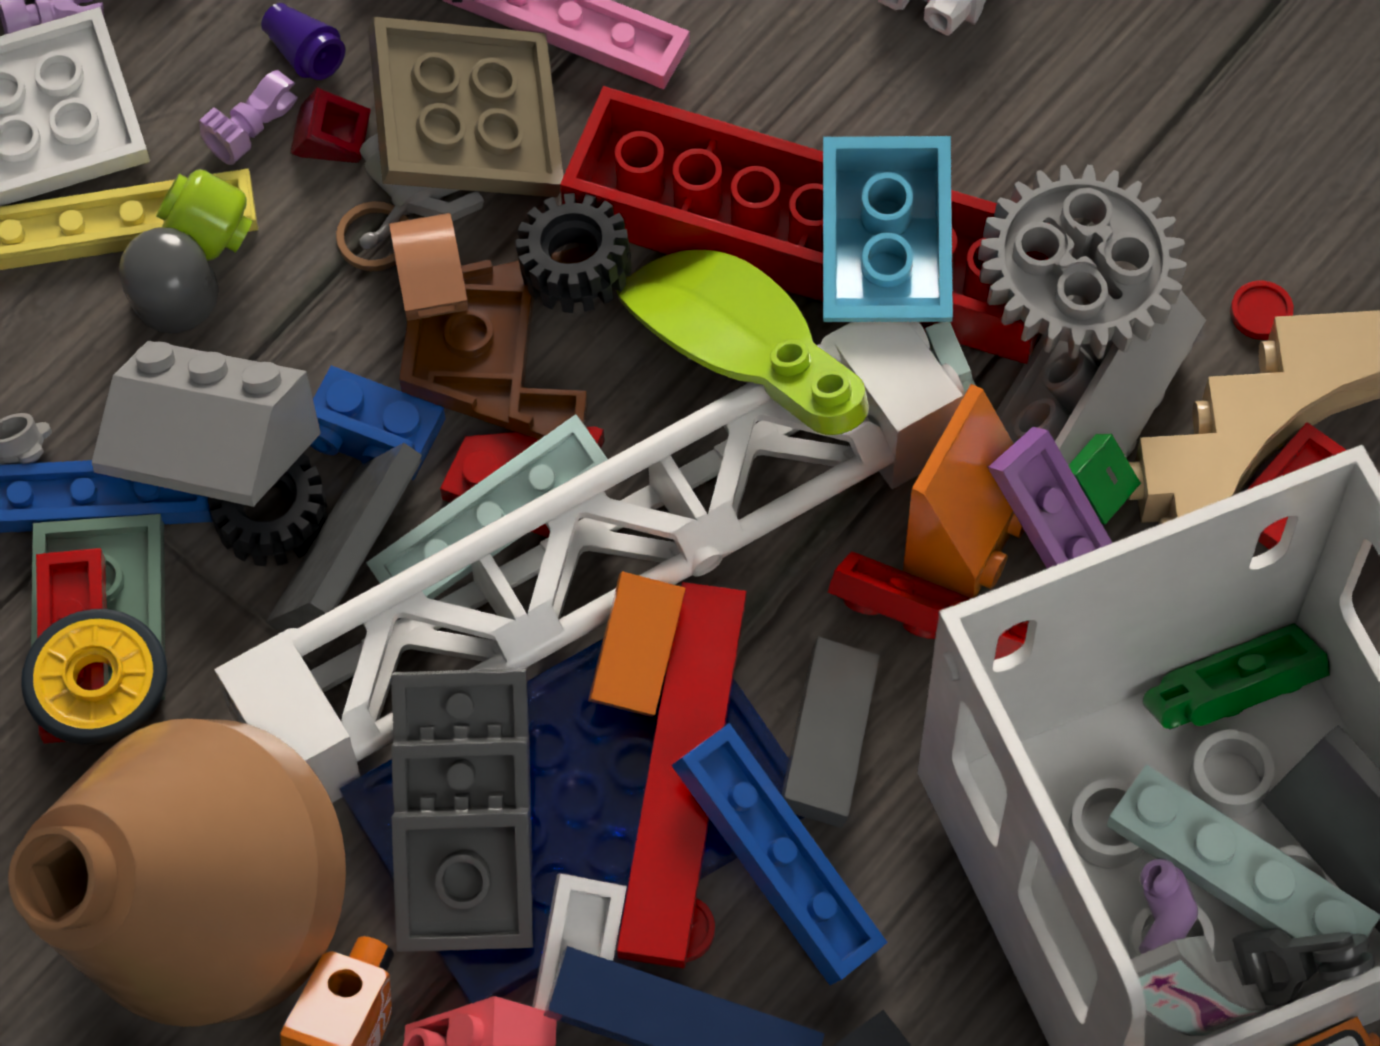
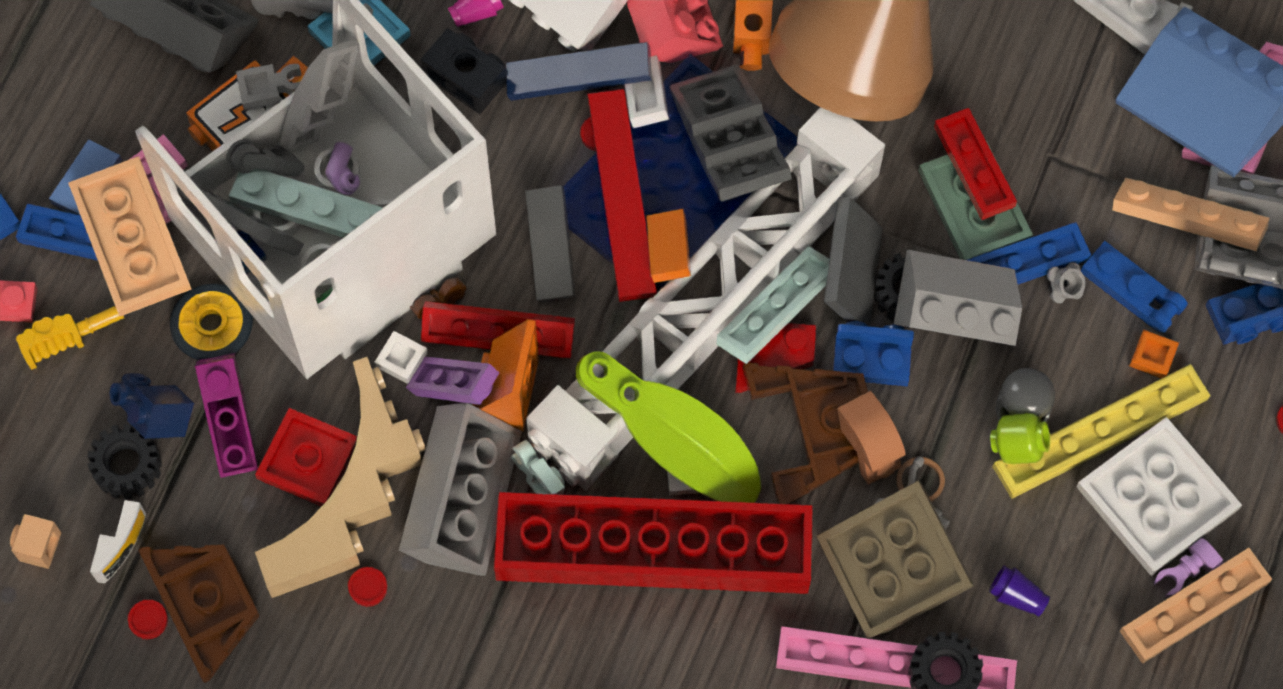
camera: 160 degrees right, 5 degrees up
(99, 714) = (948, 159): yellow wheel -> none
(230, 137) = (1034, 512): lavender piece -> none
(330, 128) = (977, 540): dark red slope -> none
(568, 225) = (794, 451): black tyre -> none
(779, 854) = (557, 162): blue plate -> none
(887, 229) = (600, 504): medium azure slope -> none
(1081, 261) = (500, 502): light grey gear -> none
(1104, 475) = (436, 415): green tile -> none

